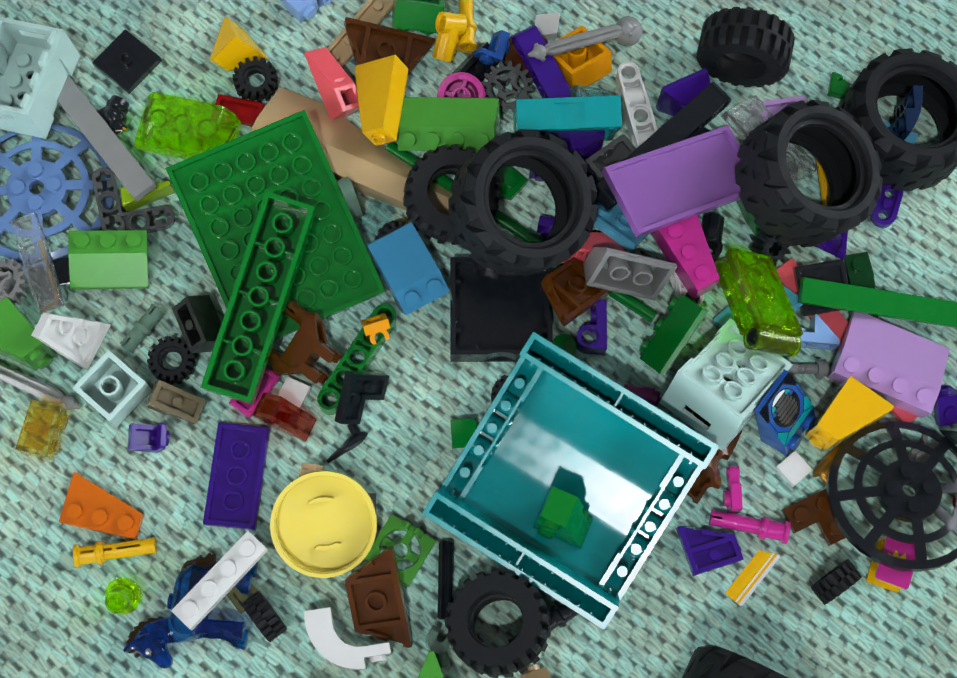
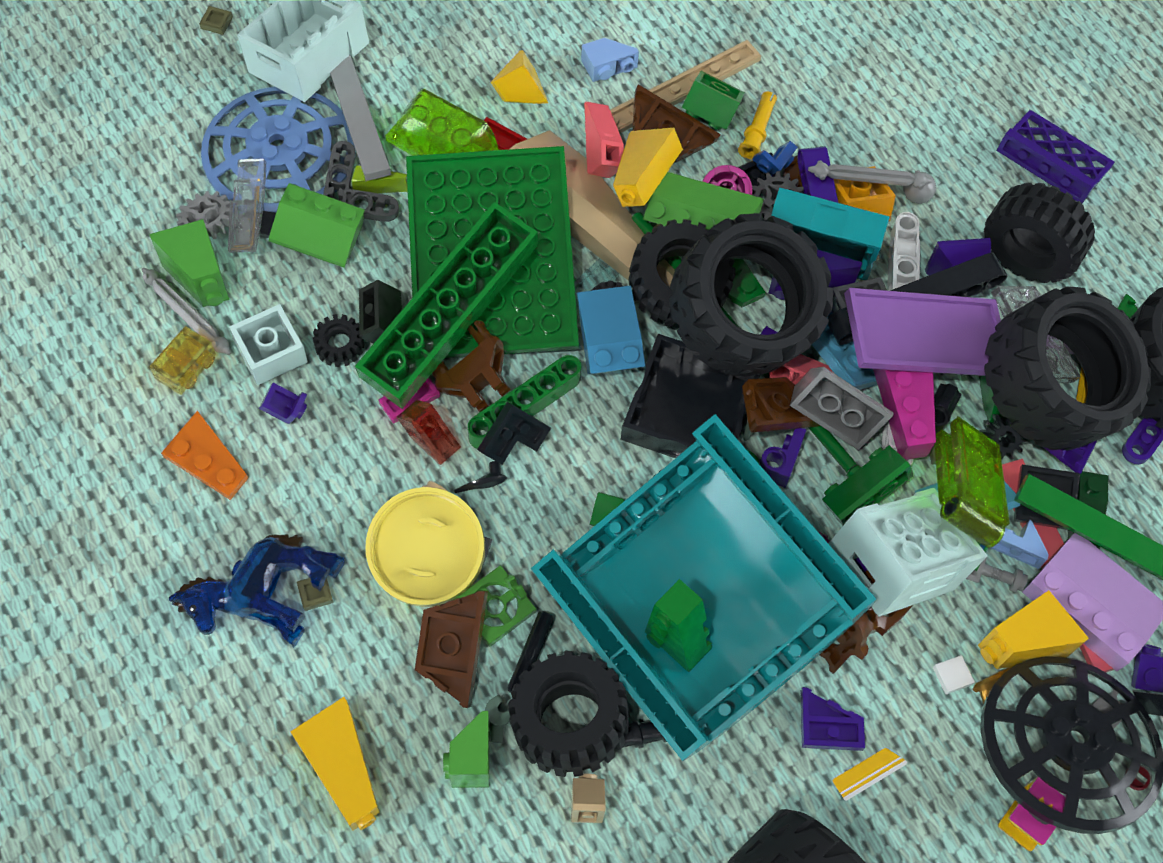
camera: 20 degrees right, 10 degrees down
(71, 336) = (249, 280): white wing -> none
(101, 552) = (190, 497): yellow pin -> none
(115, 114) = (380, 101): black animal -> none
(122, 596) = (192, 547): clear neon green piece -> none
(127, 61) = (411, 62): black plate -> none
(142, 328) = (322, 301): sand green pin -> none
(175, 401) = (323, 376): dark tan plate -> none
(219, 580) = (294, 561): white plate -> none
(236, 476) = (356, 473): dark purple tile -> none
(251, 67) = (531, 104): black tyre -> none
(264, 616) = (325, 617): black tyre -> none
(294, 391) = (450, 412): white tile -> none
(323, 636) = (379, 661): white arch -> none
(350, 197) = (578, 246): sand green beam -> none
(374, 325) = (555, 370): light orange tile -> none
(449, 29) = (737, 126): yellow piece -> none
(548, 25) = (841, 155): white slope -> none
(733, 495) = (875, 677): dark pink plate -> none
(762, 527) = (898, 723): dark pink pin -> none
(784, 414) = (960, 607): slope -> none
(811, 511) = (961, 727): reddish brown plate -> none
(836, 582) = (962, 808): black tyre -> none

